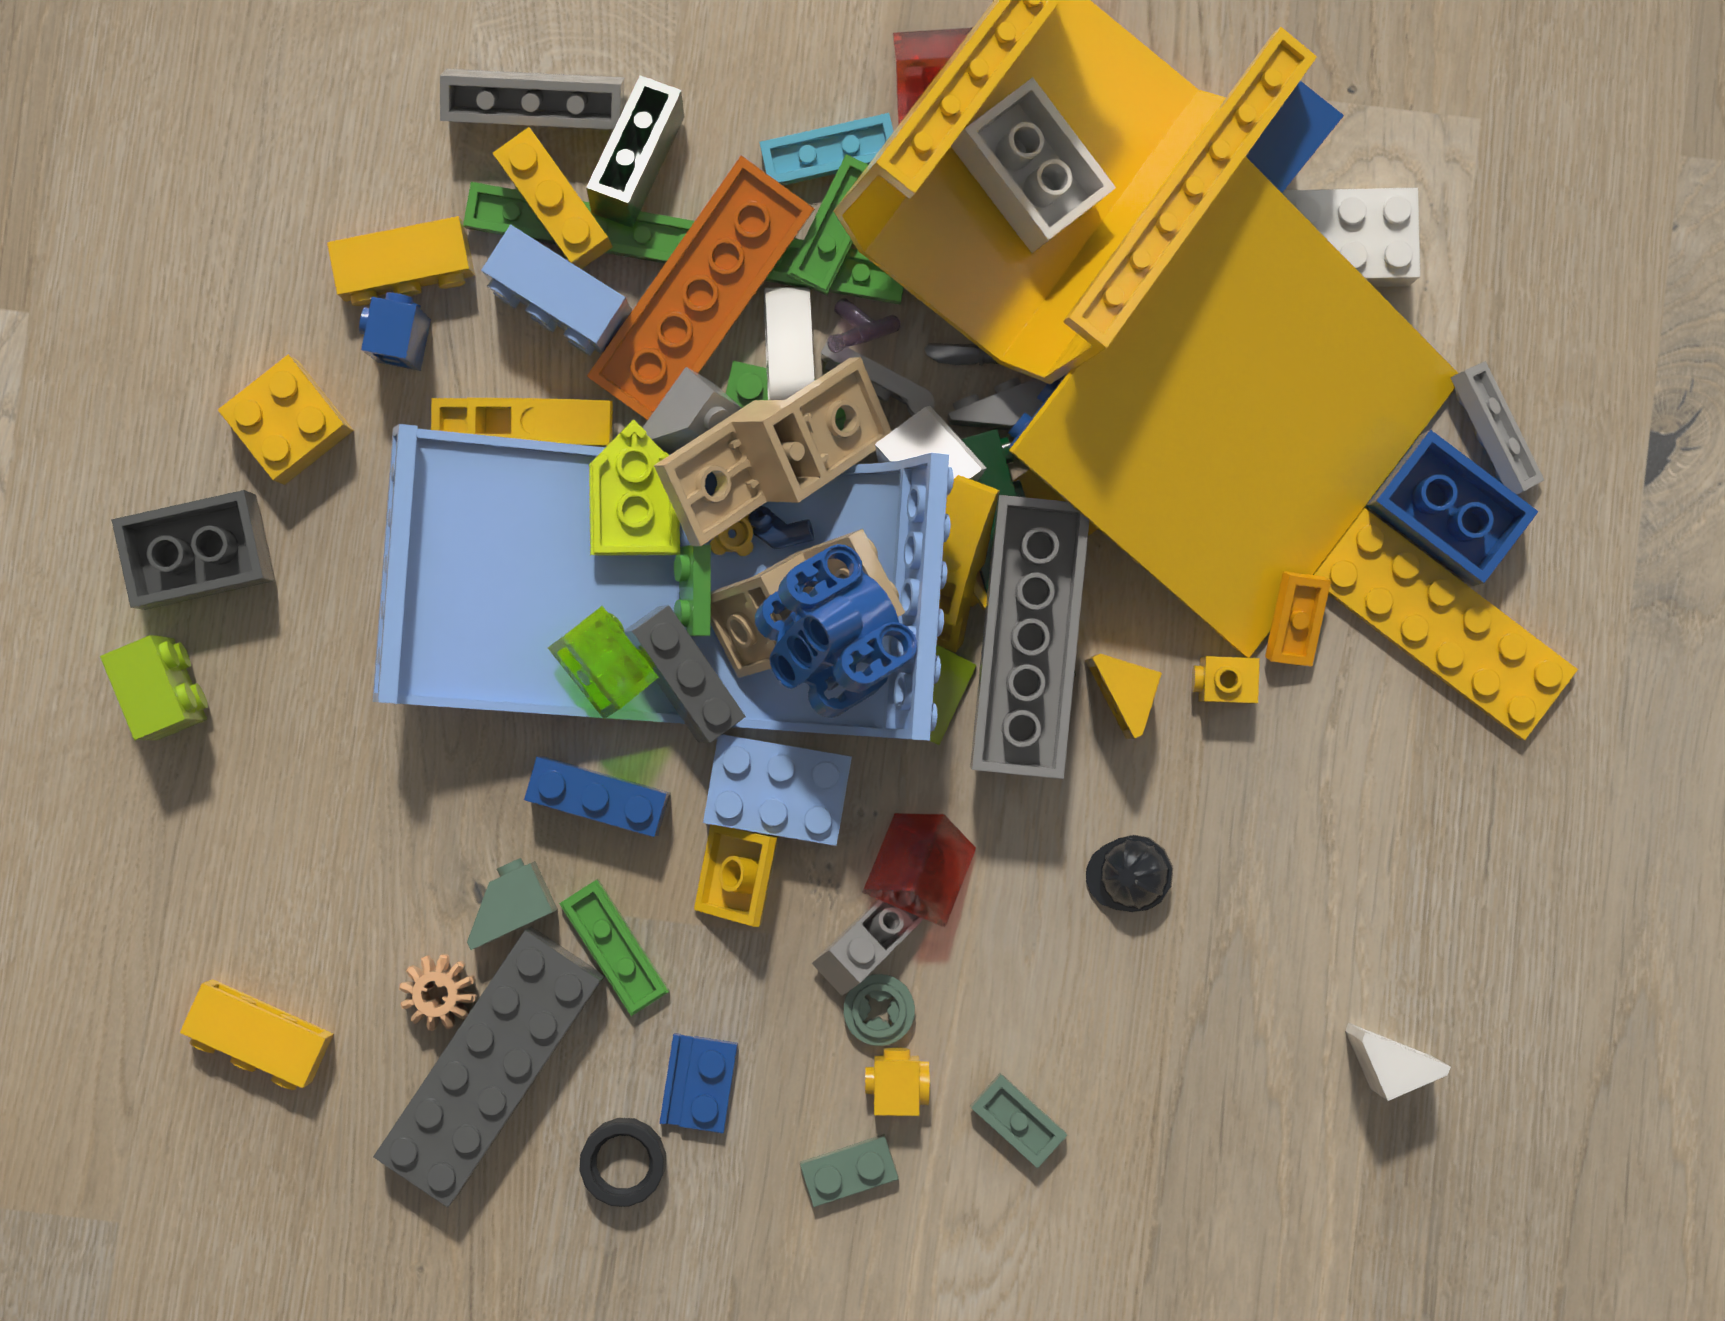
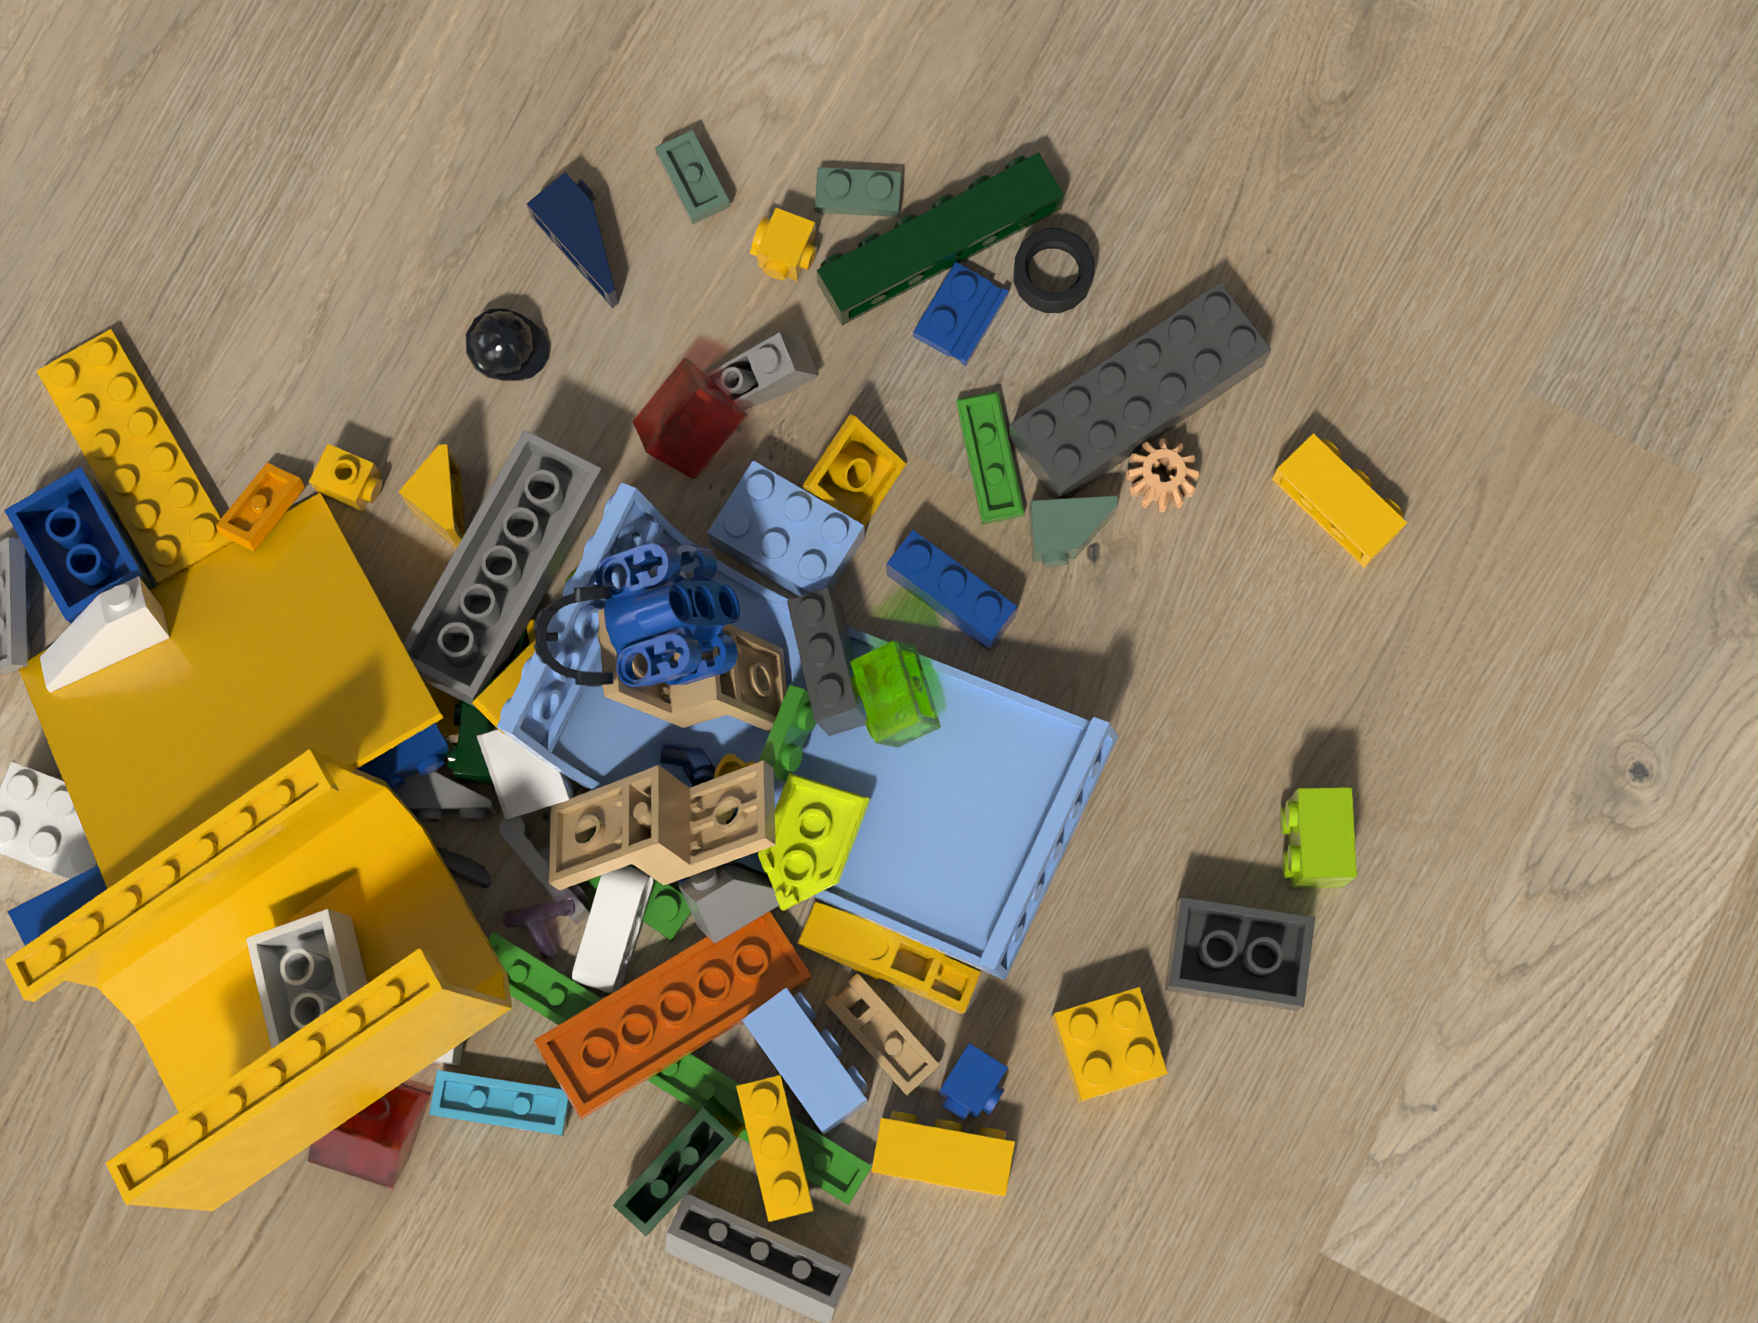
camera: 155 degrees left, 10 degrees down
(500, 349) = (883, 1035): none -> tan plate
(747, 1151) = (940, 237): none -> dark green brick
(826, 240) = (514, 1032): bright green tile -> none
(879, 1031) = (786, 299): sand green gear -> none
(918, 609) = (579, 594): none -> black piece
(1115, 1022) = (570, 221): none -> dark blue slope
(1387, 432) = (106, 632): none -> white slope
(1391, 1066) = (347, 95): white slope -> none

